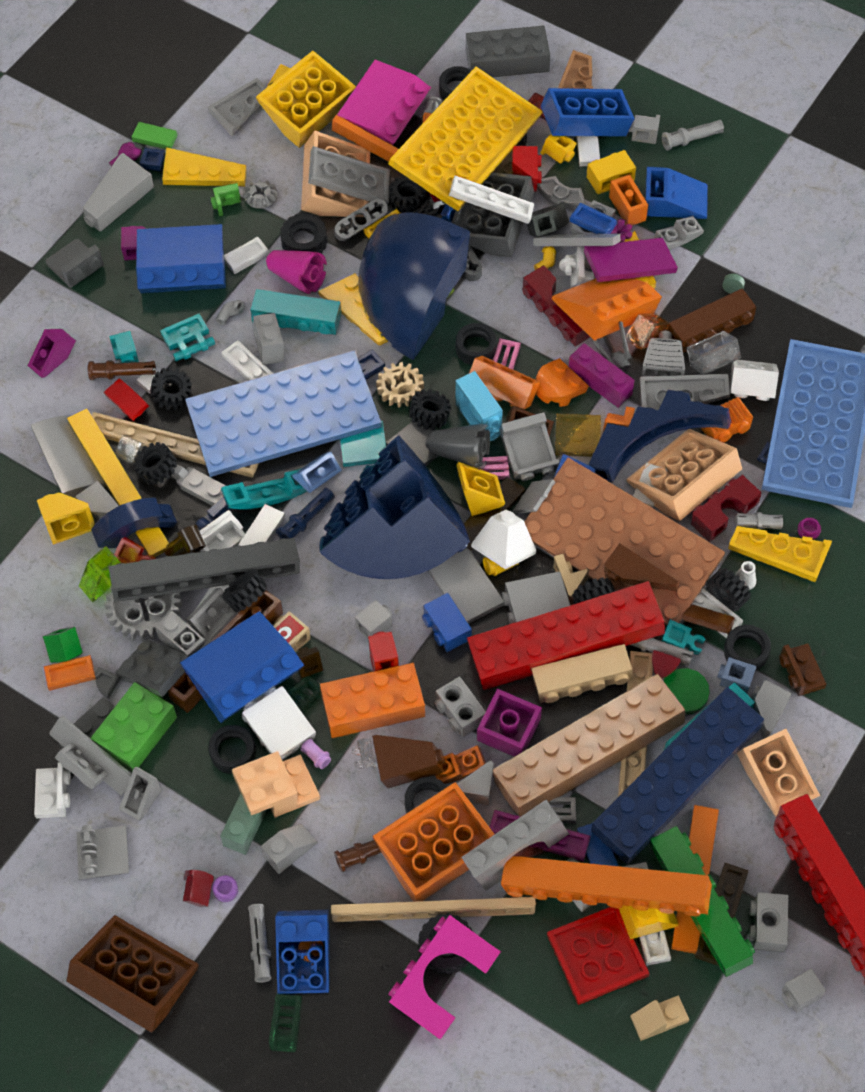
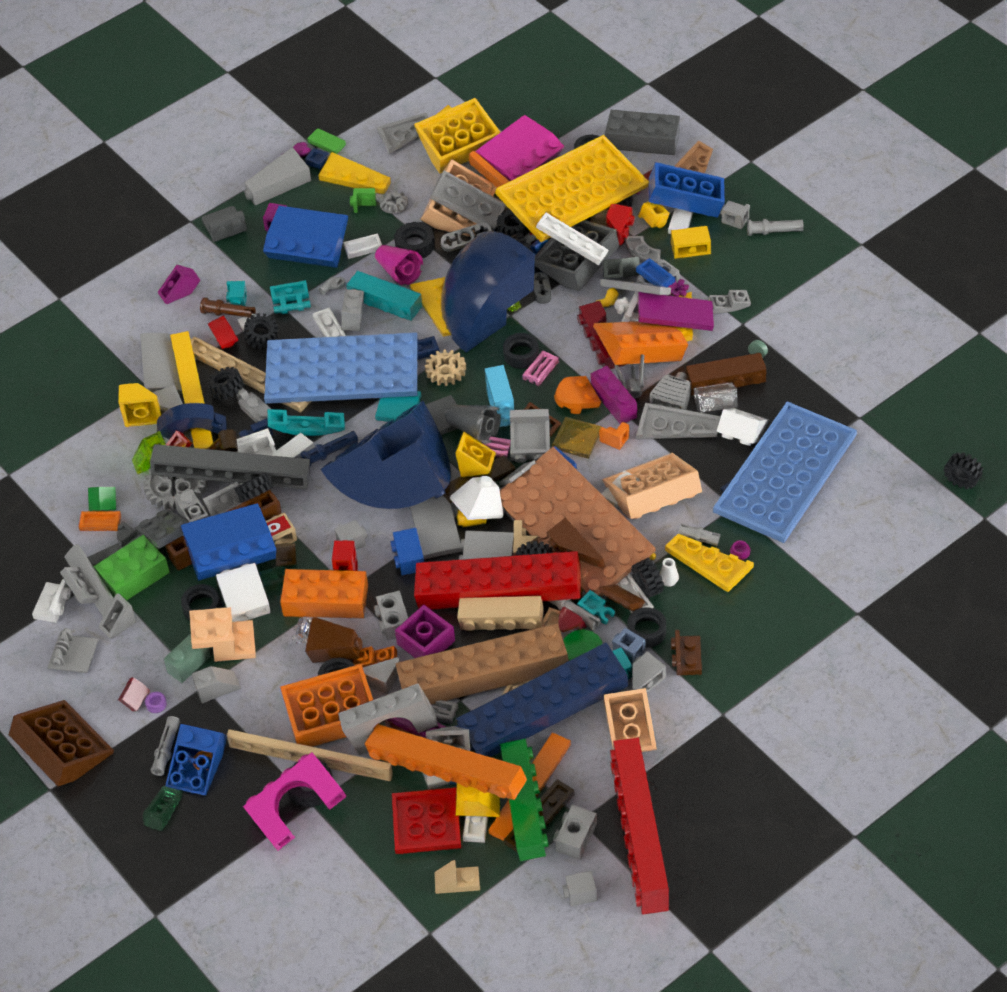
camera: 20 degrees right, 10 degrees down
(128, 448) = (209, 367): clear plate -> none
(317, 472) = (352, 418): medium blue slope -> none
(317, 755) = (267, 627): lavender pin -> none
(356, 854) = (265, 702): reddish brown pin -> none
(433, 401) = (468, 389): black tyre -> none
(505, 382) = (530, 383): orange brick -> none
(594, 849) = (451, 736): none -> light grey slope
(628, 200) = (694, 266): orange brick -> none
(646, 327) = (666, 365): clear orange slope -> none
(647, 425) = (634, 440): dark blue arch -> none
(674, 194) = (736, 269): blue slope -> none
(737, 495) = (688, 510): dark red arch -> none
(740, 421) = (705, 452): orange brick -> none

